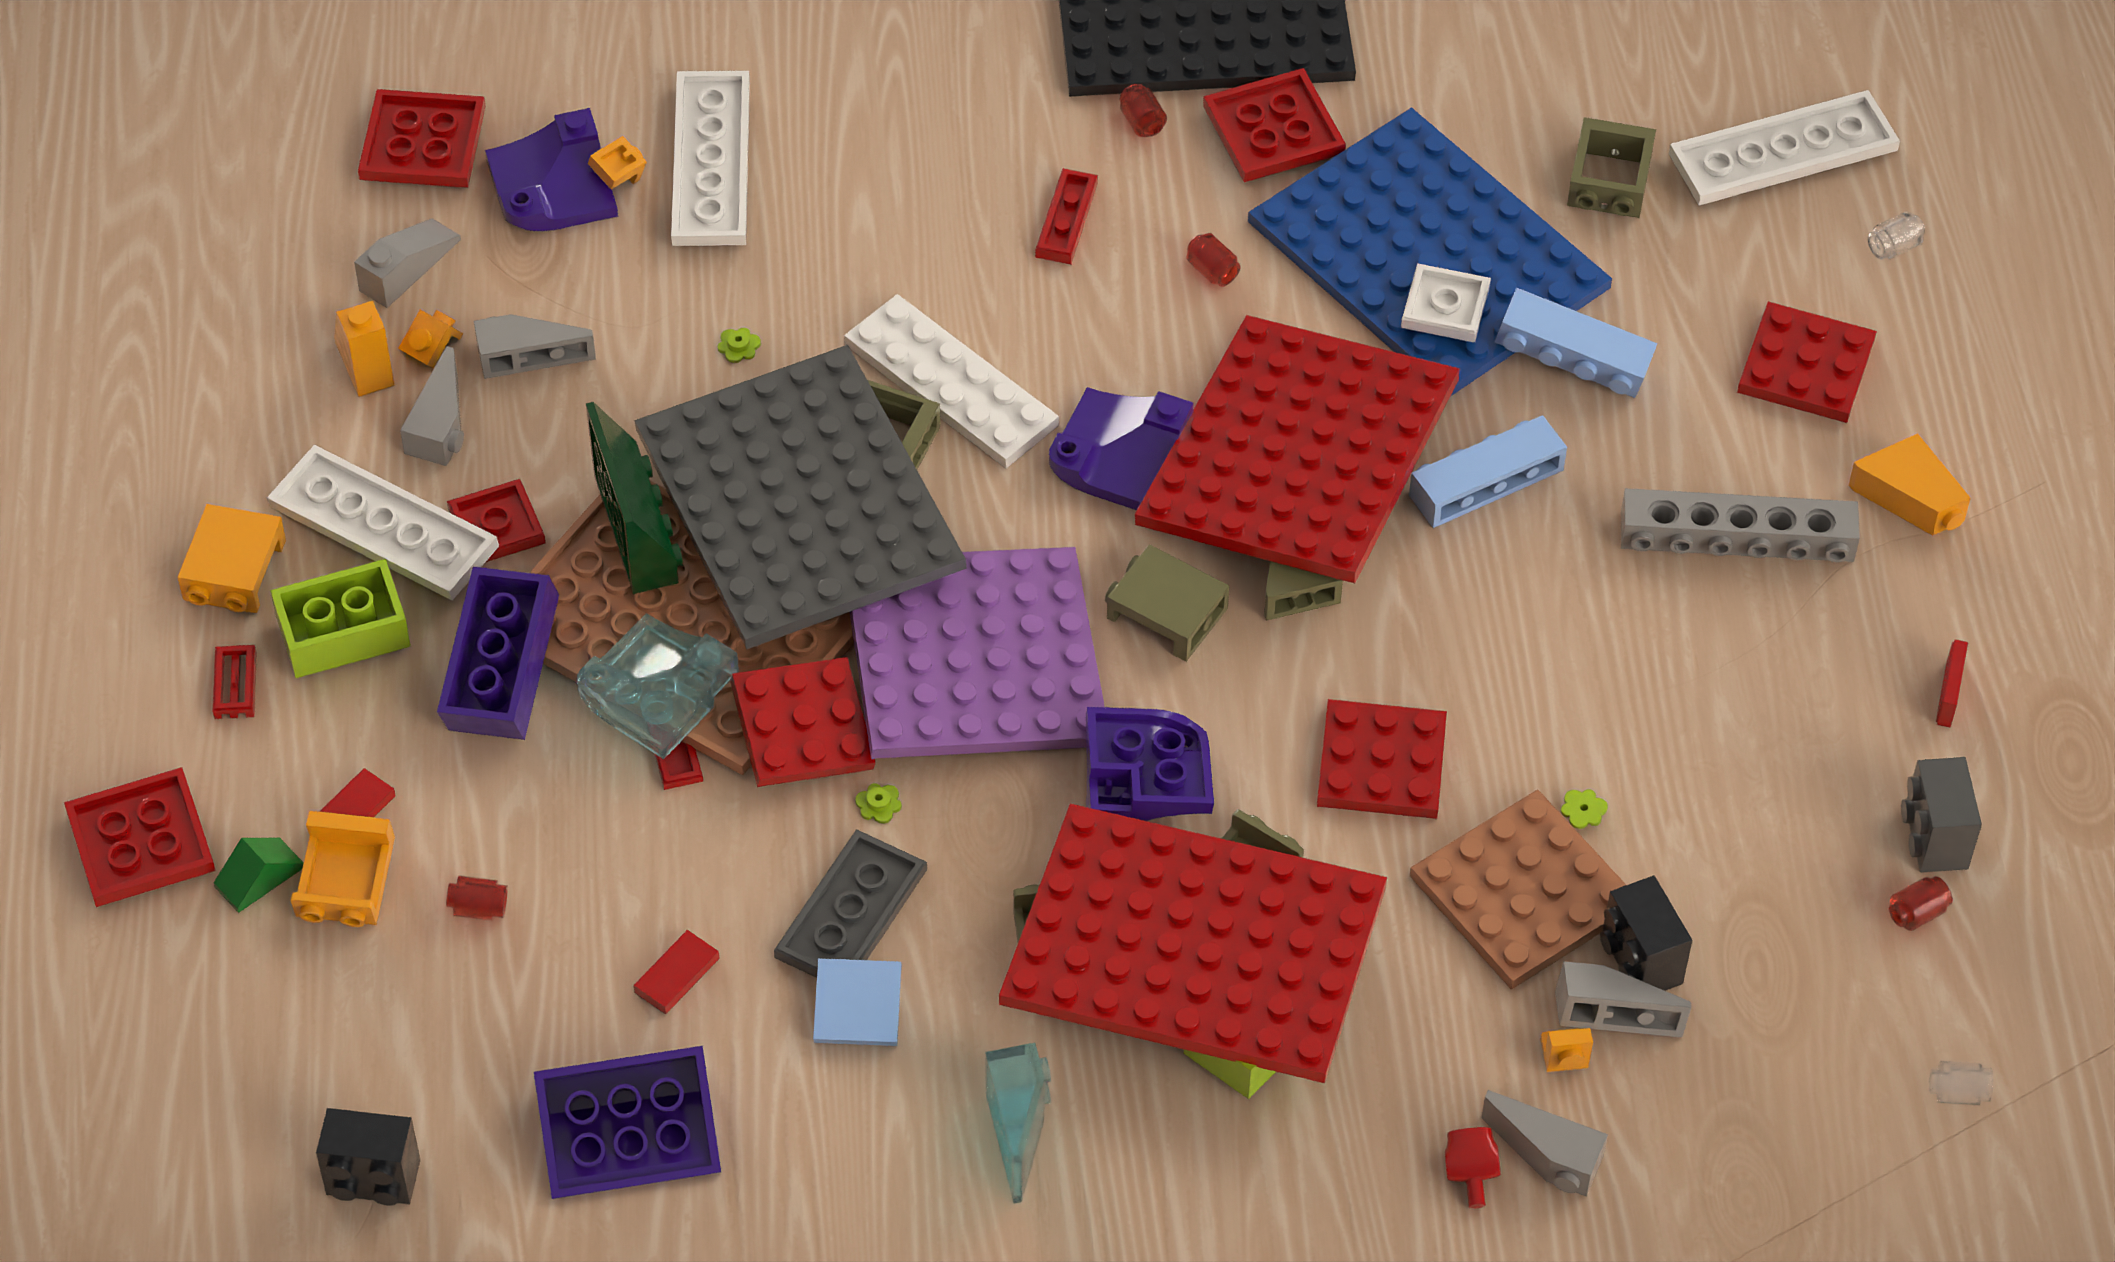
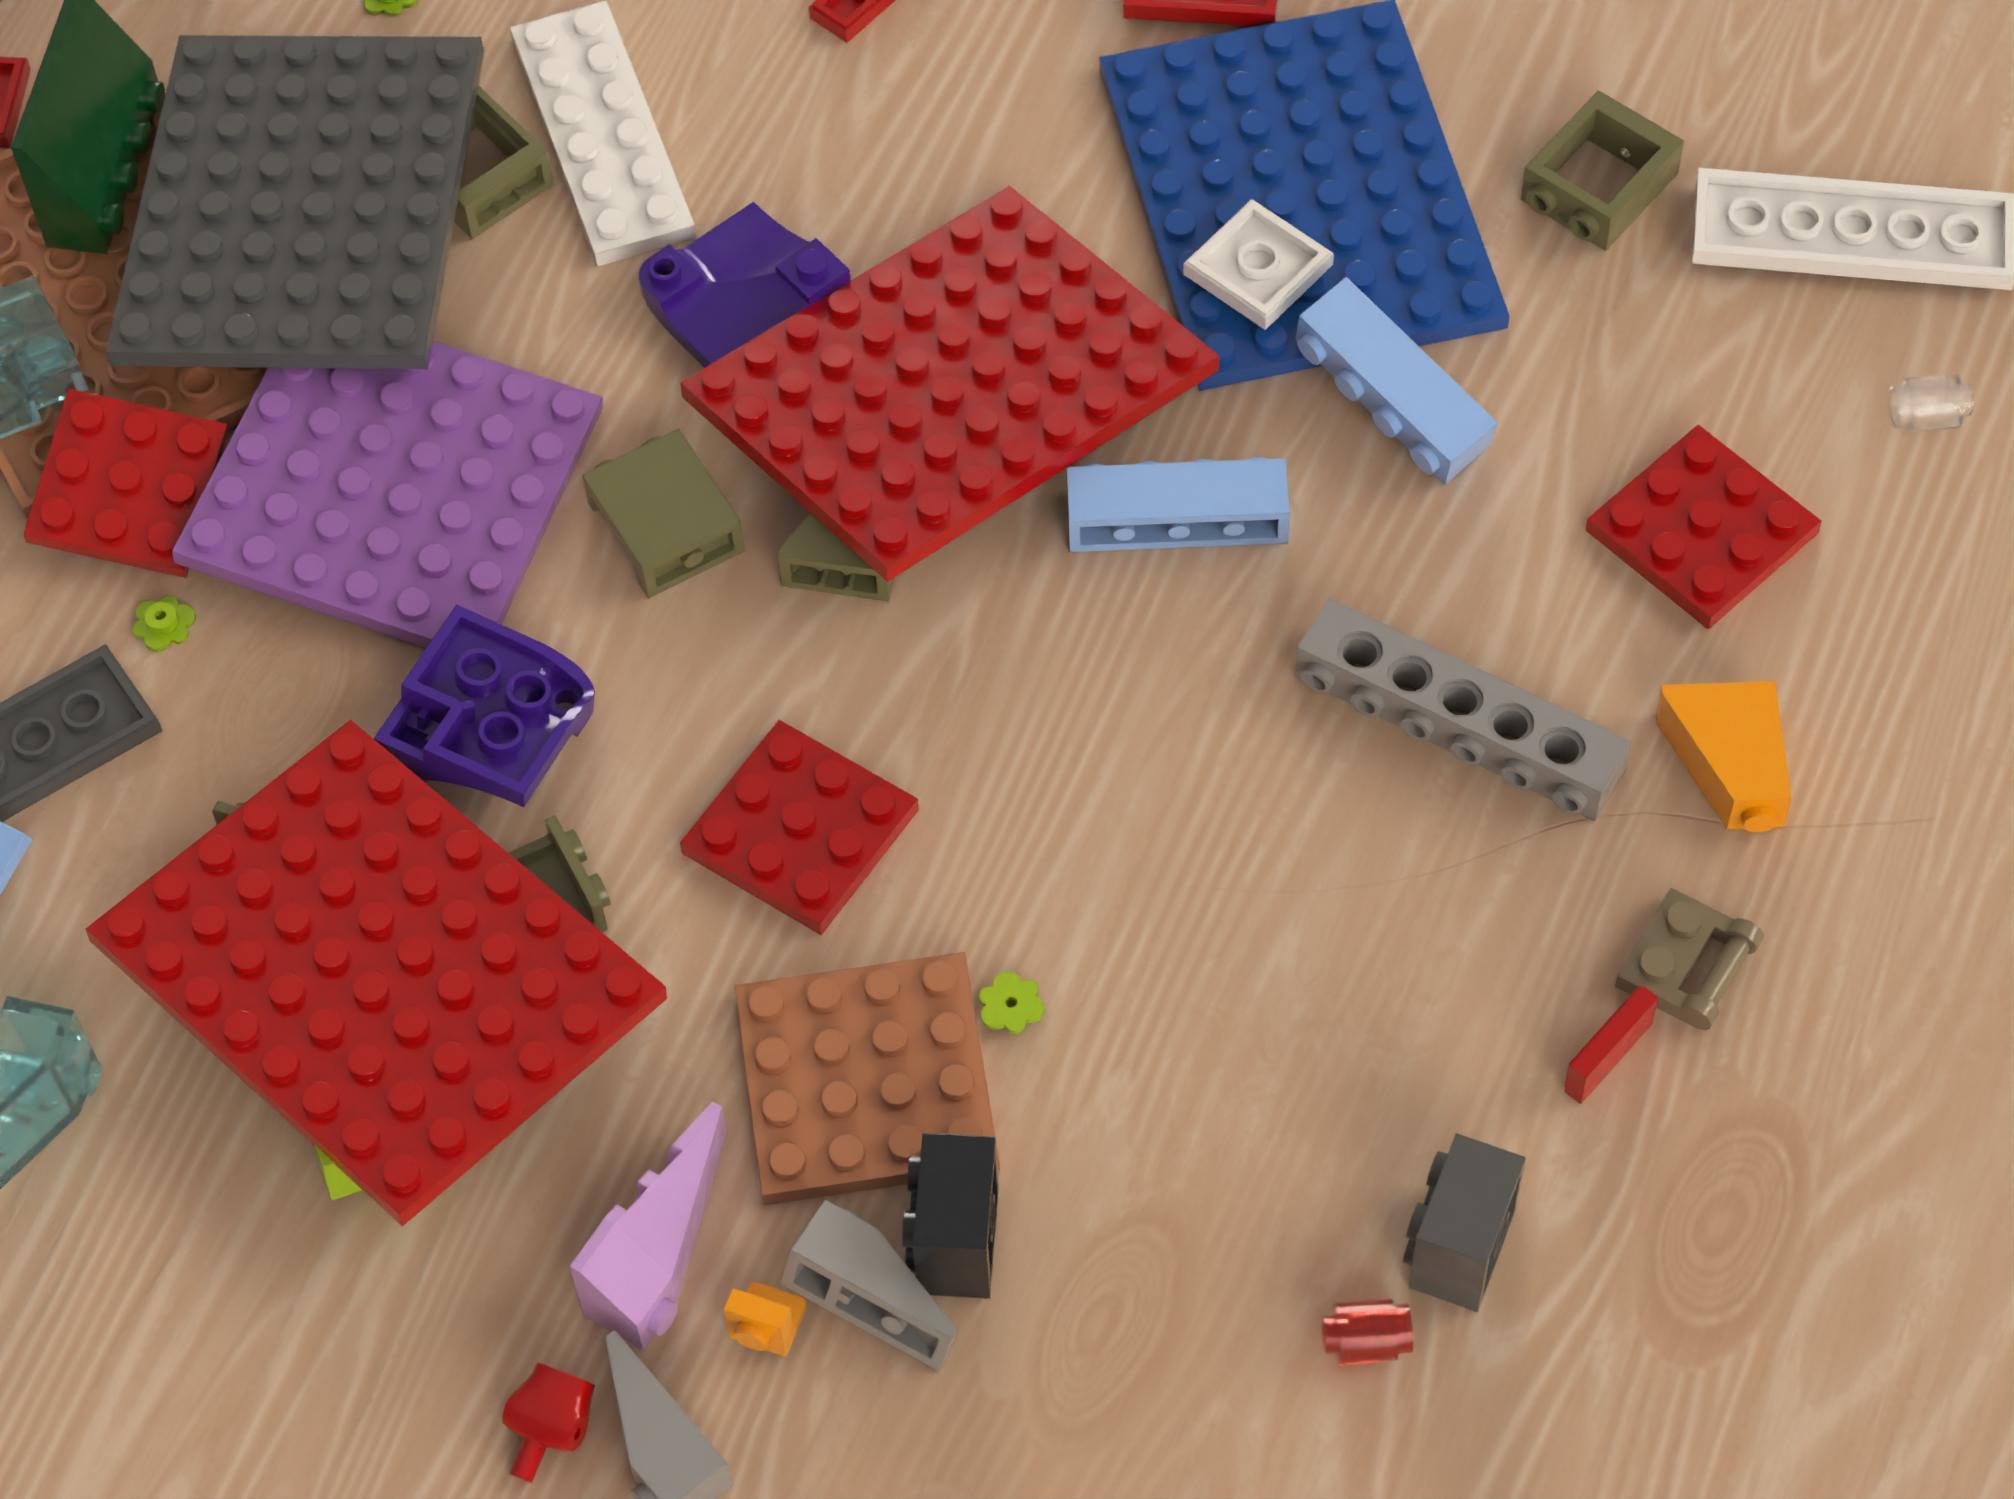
camera: 30 degrees right, 5 degrees up
(1213, 259) = (1013, 100): clear red brick -> none
(1473, 1040) = (640, 1255): none -> lavender wedge
(1948, 616) = (1674, 946): none -> dark tan plate

